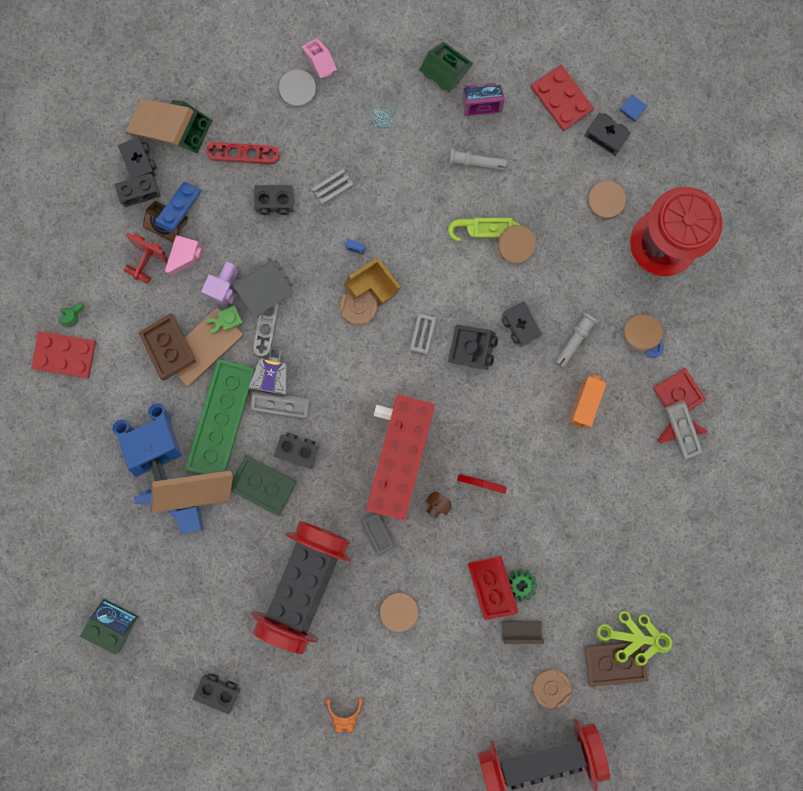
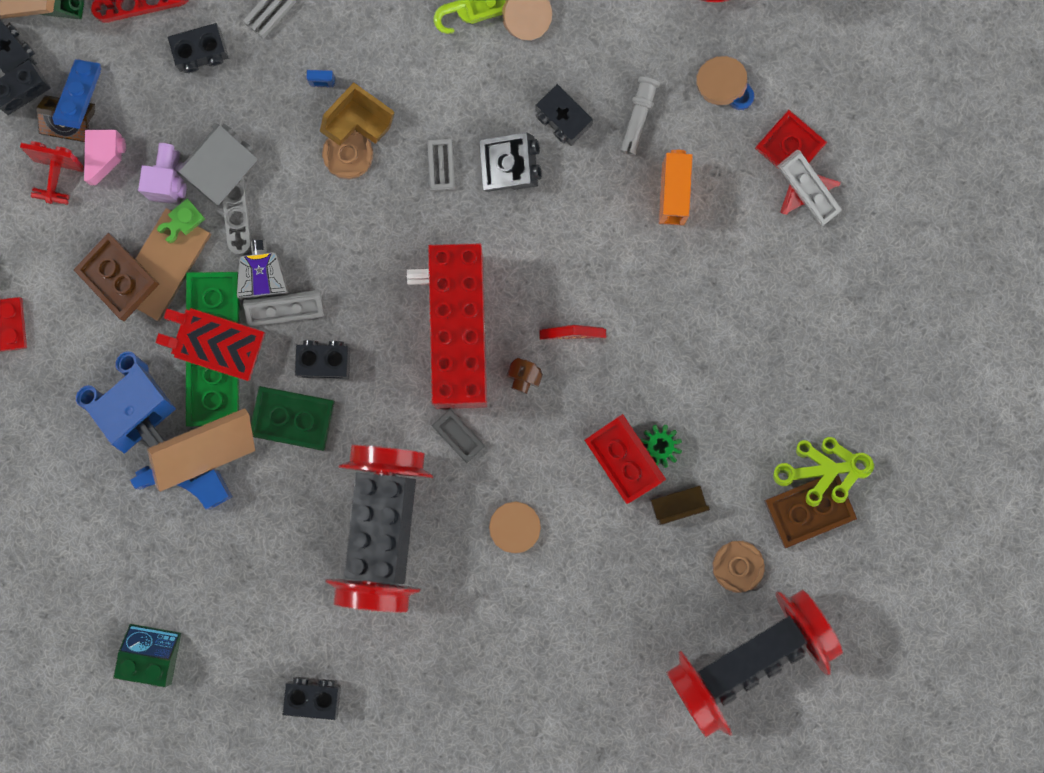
camera: 15 degrees left, 0 degrees up
(222, 415) = (213, 343): none -> red tile
(344, 723) = (485, 689): orange helmet -> none

